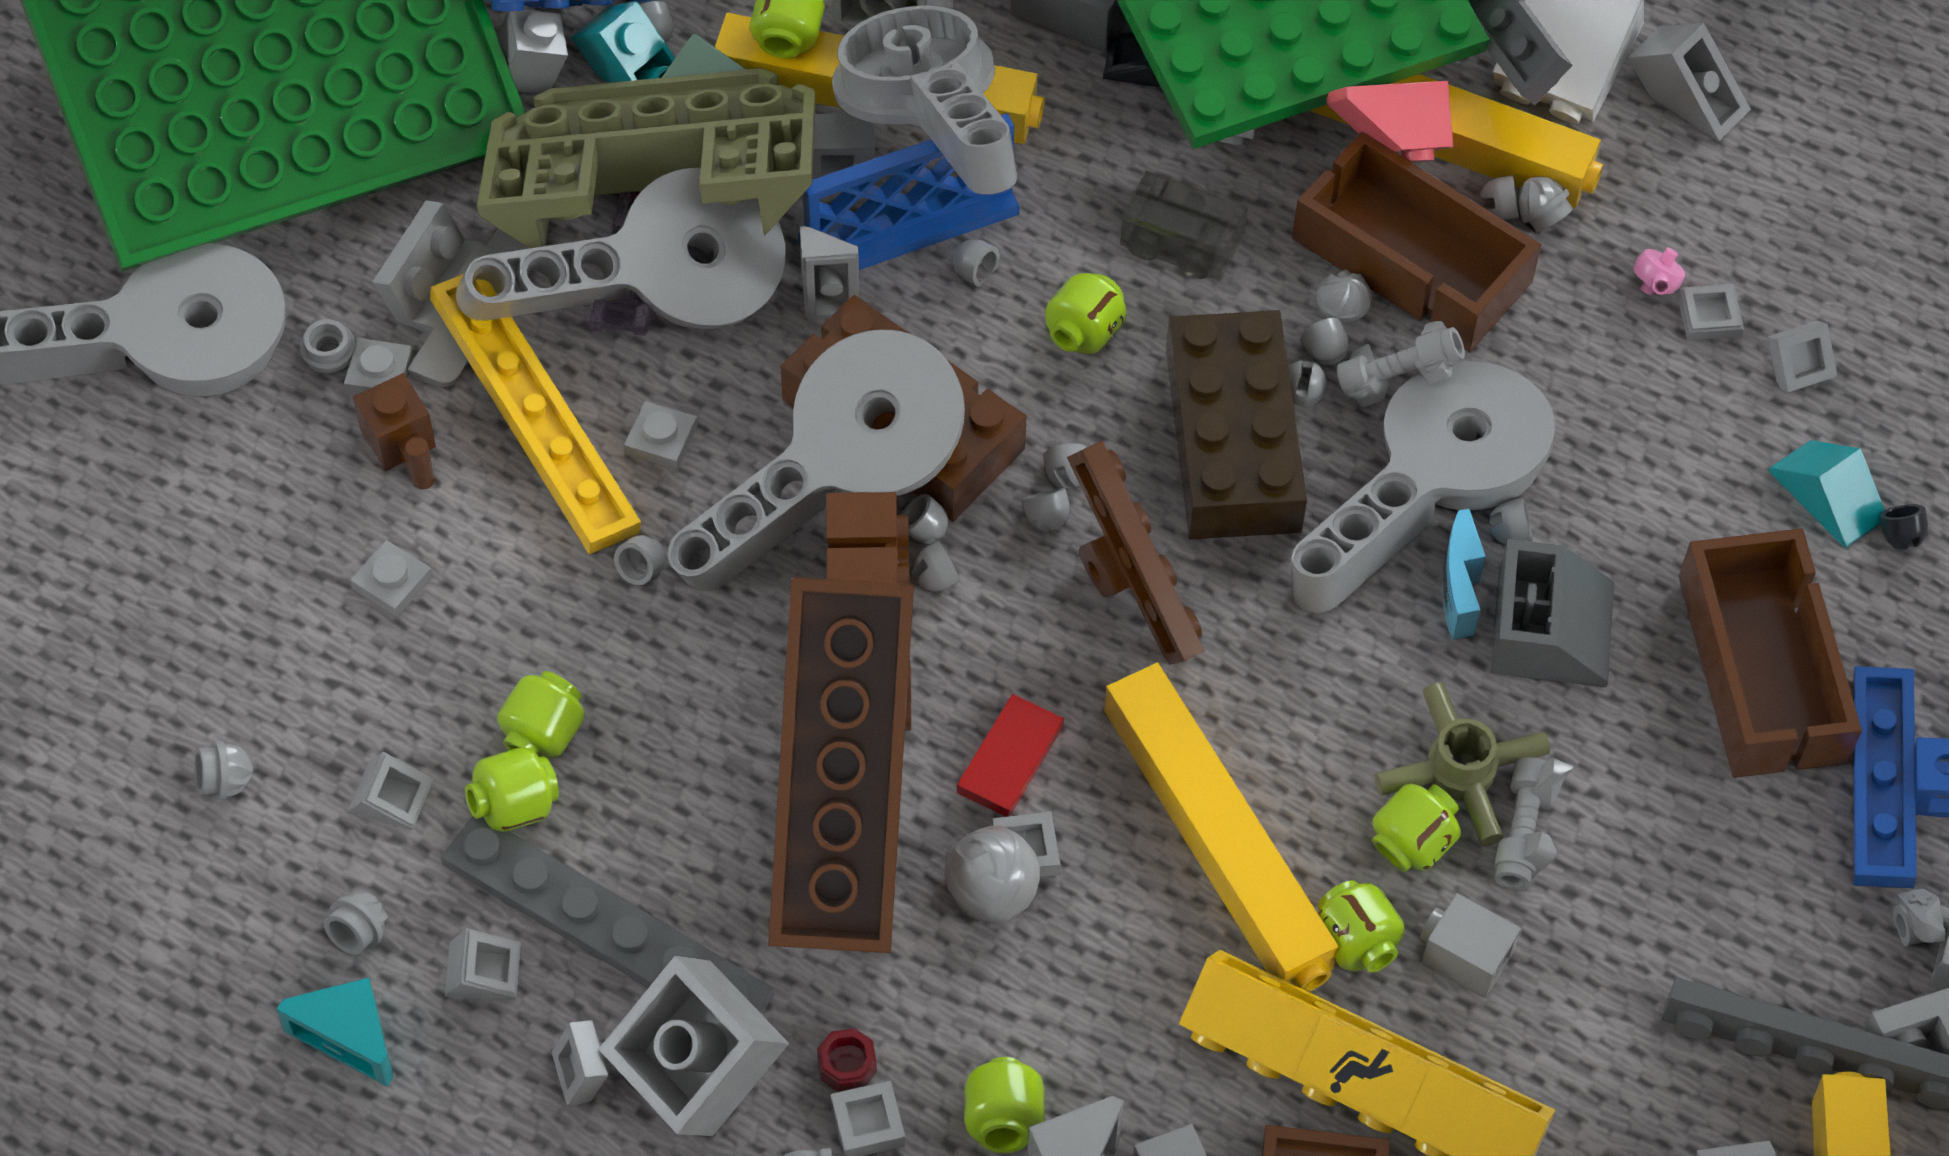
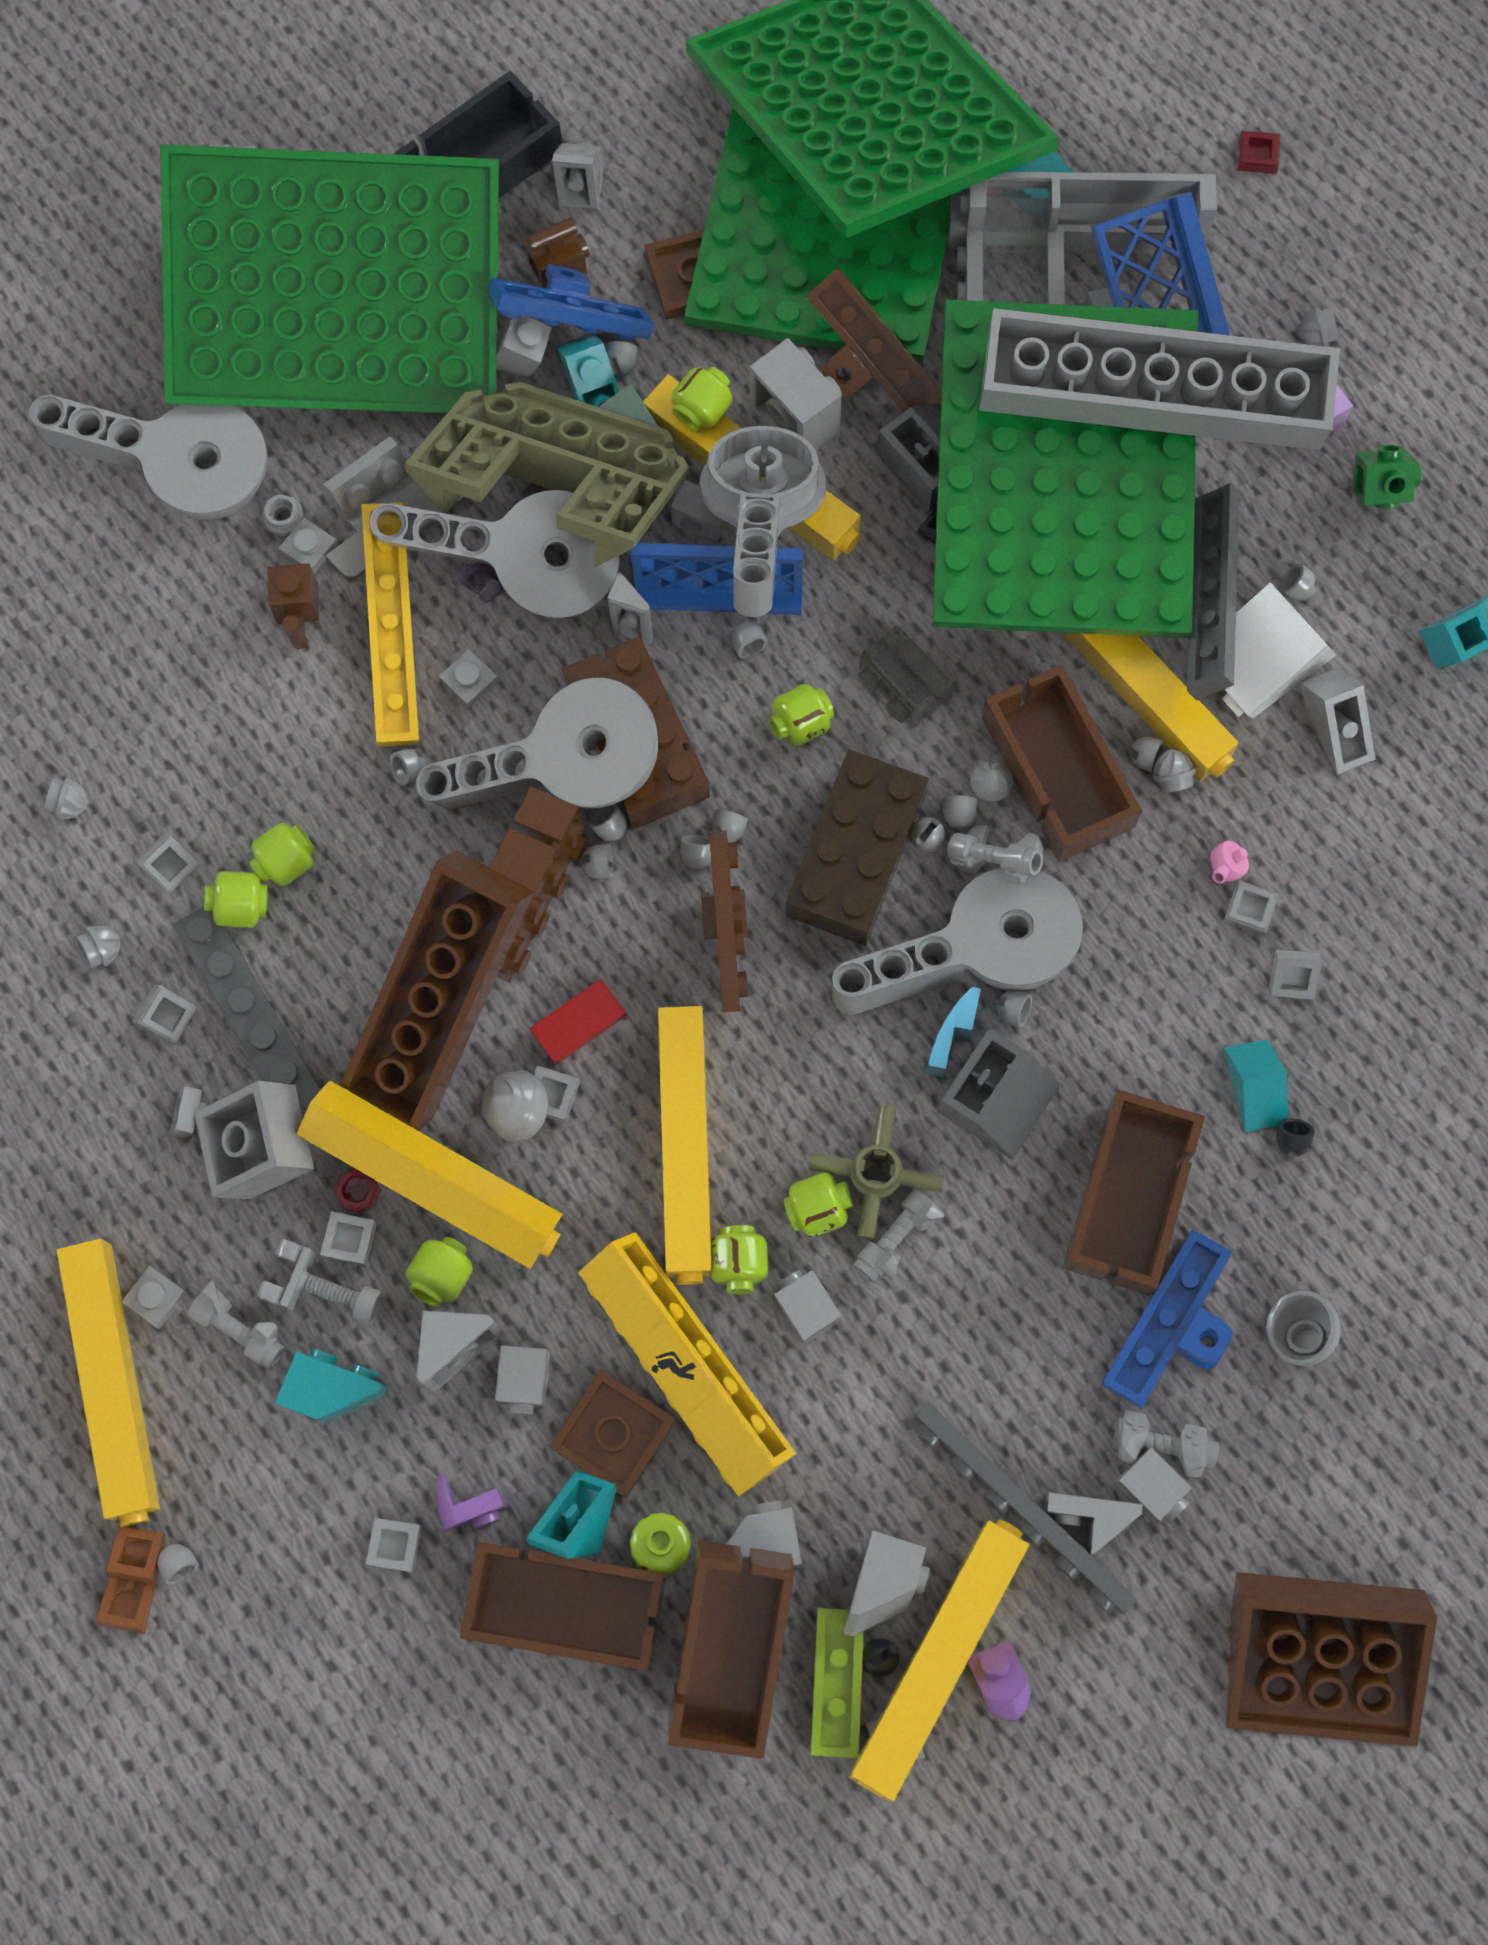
camera: 30 degrees right, 15 degrees up
(341, 1024) = (56, 1018): teal slope -> none
(391, 578) = (241, 706): light grey plate -> none
(938, 989) = (430, 1174): none -> yellow brick
(1403, 116) = (1094, 666): coral slope -> none

